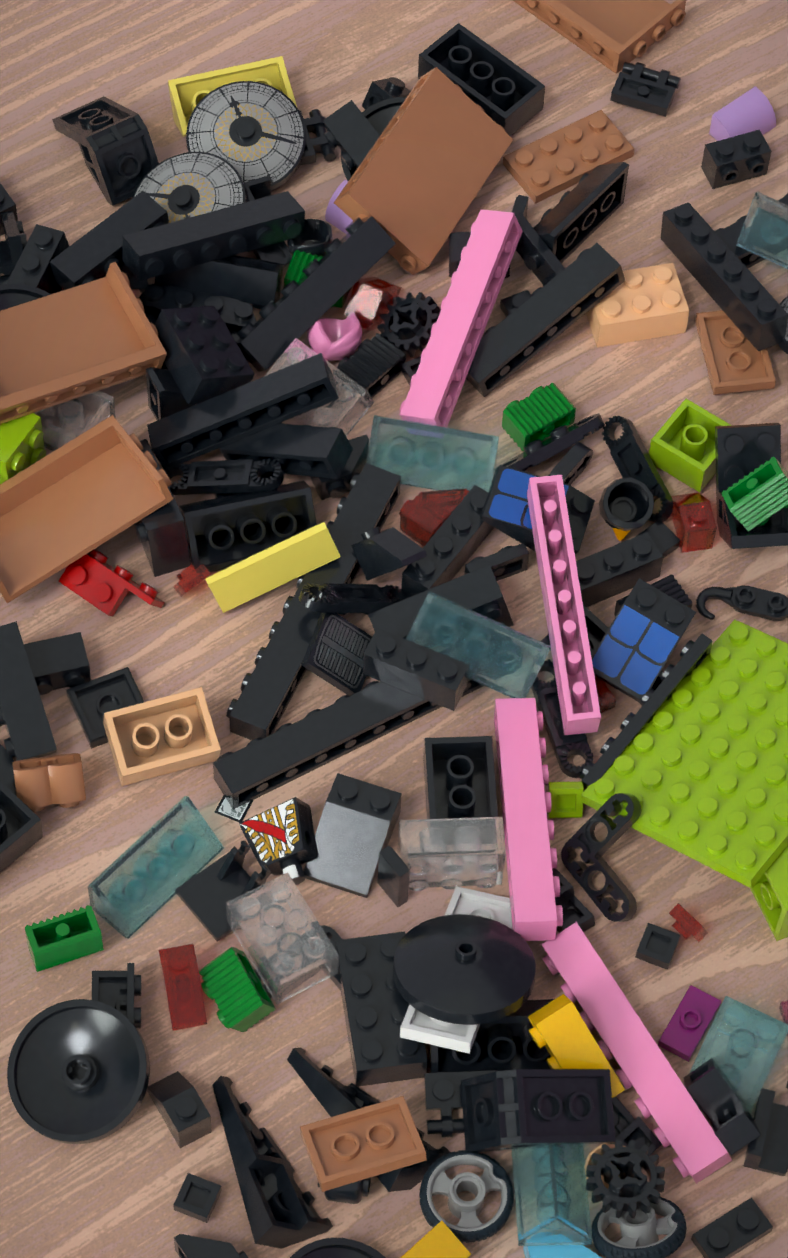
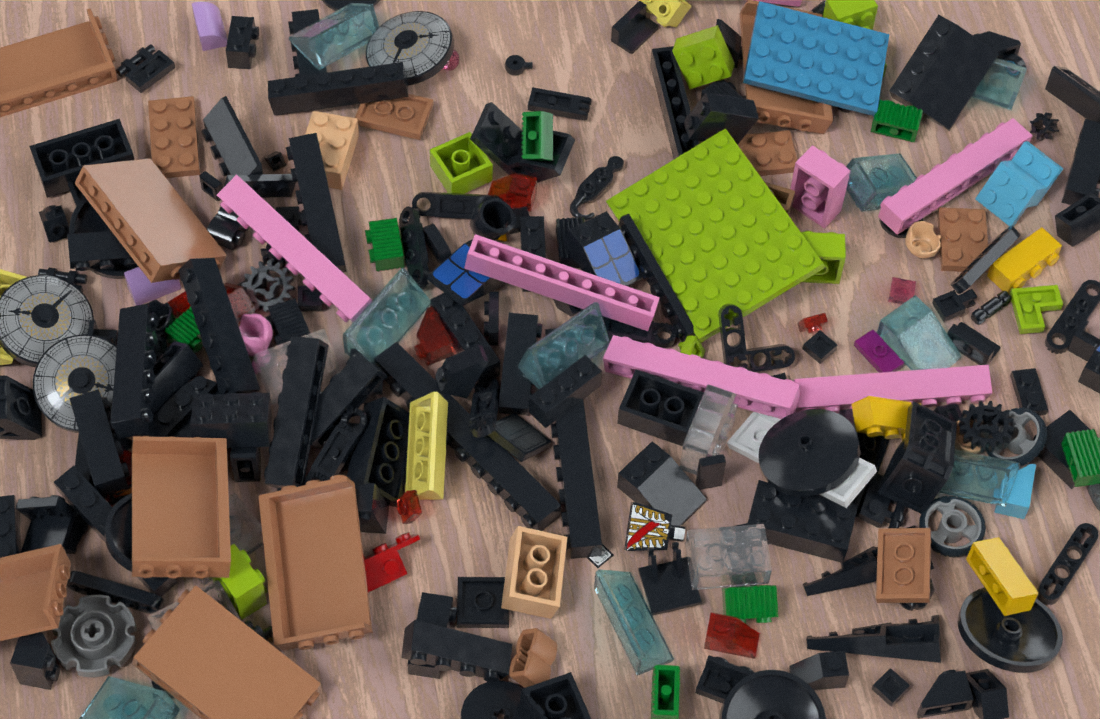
camera: 65 degrees left, 0 degrees up
(722, 1105) = (953, 355): black brick -> none

